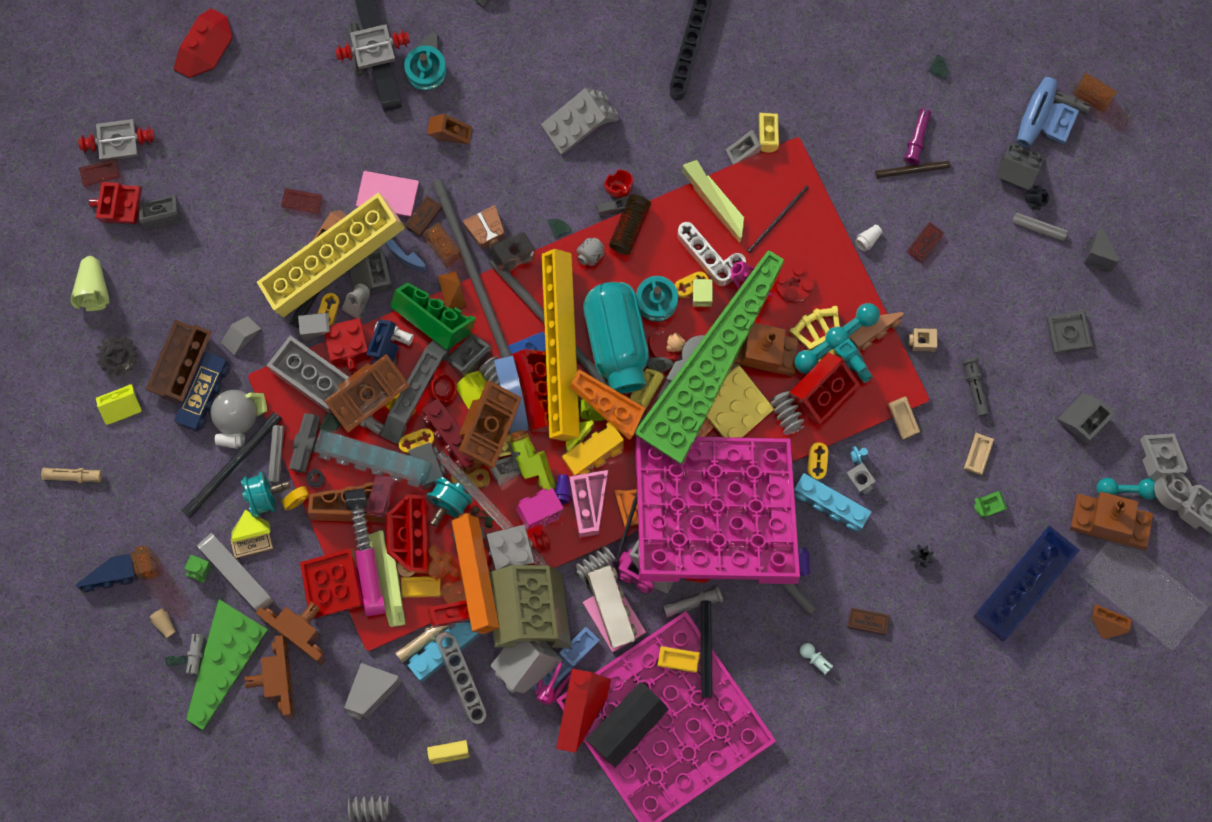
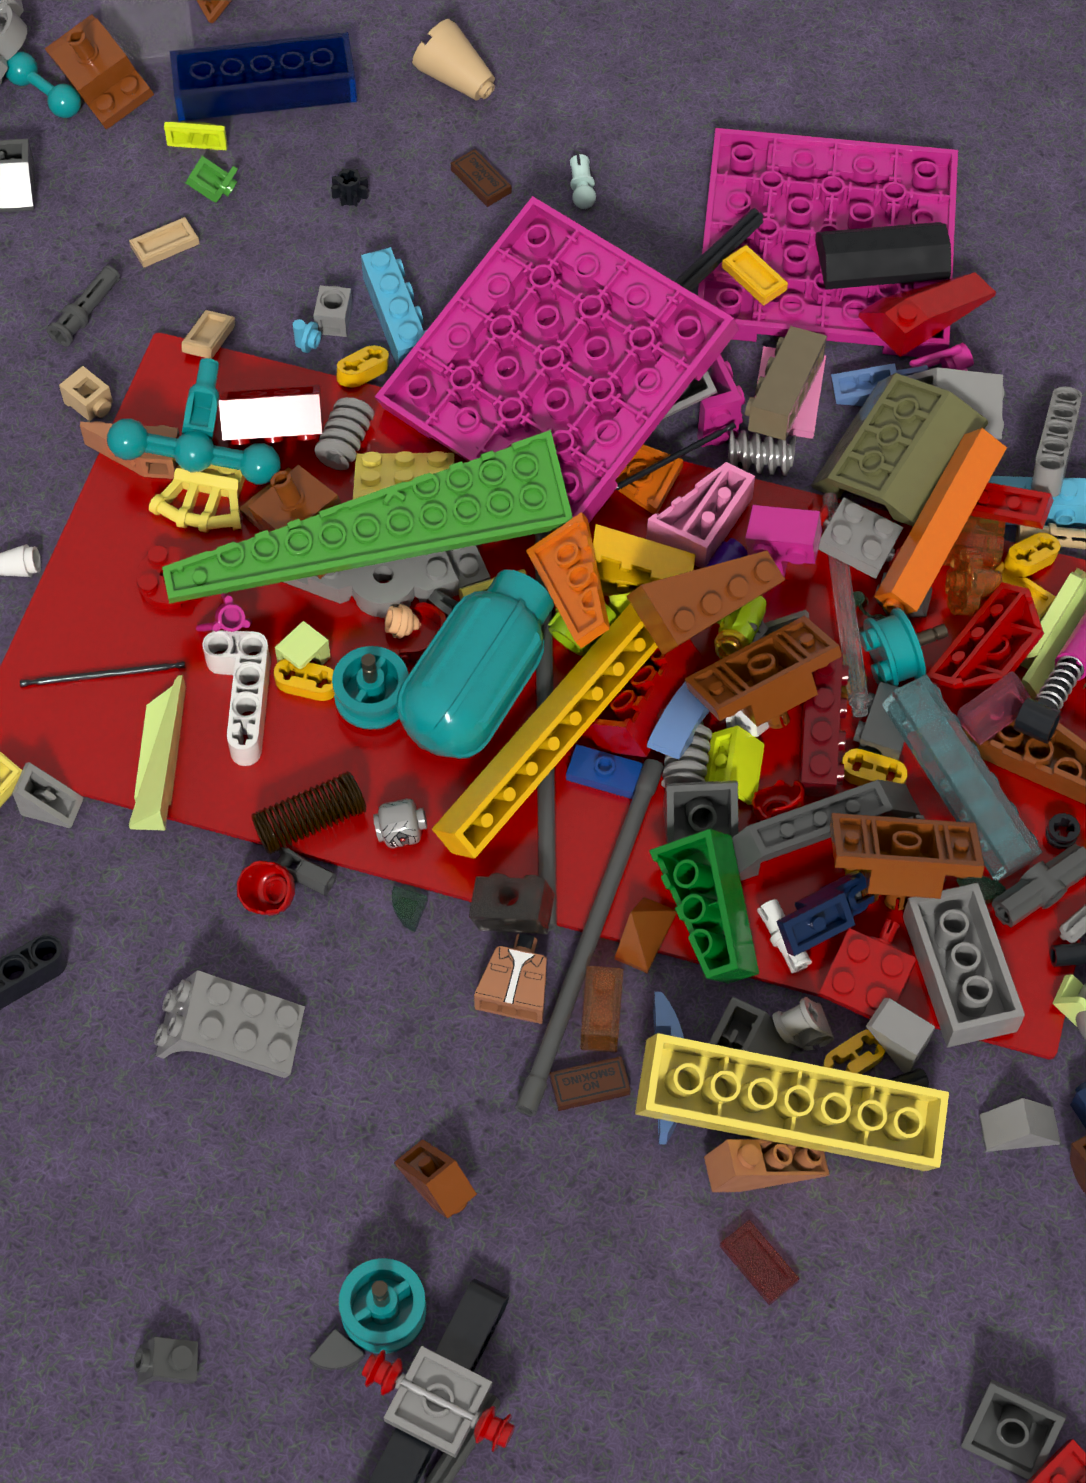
camera: 140 degrees left, 15 degrees down
(397, 191) = (616, 1162): bright pink tile -> none
(424, 608) = (1027, 549): none -> yellow beam
(541, 435) = (695, 600): none -> dark orange wedge
(941, 675) = (454, 61): none -> tan cone
(1028, 528) = (196, 135): none -> neon yellow slope

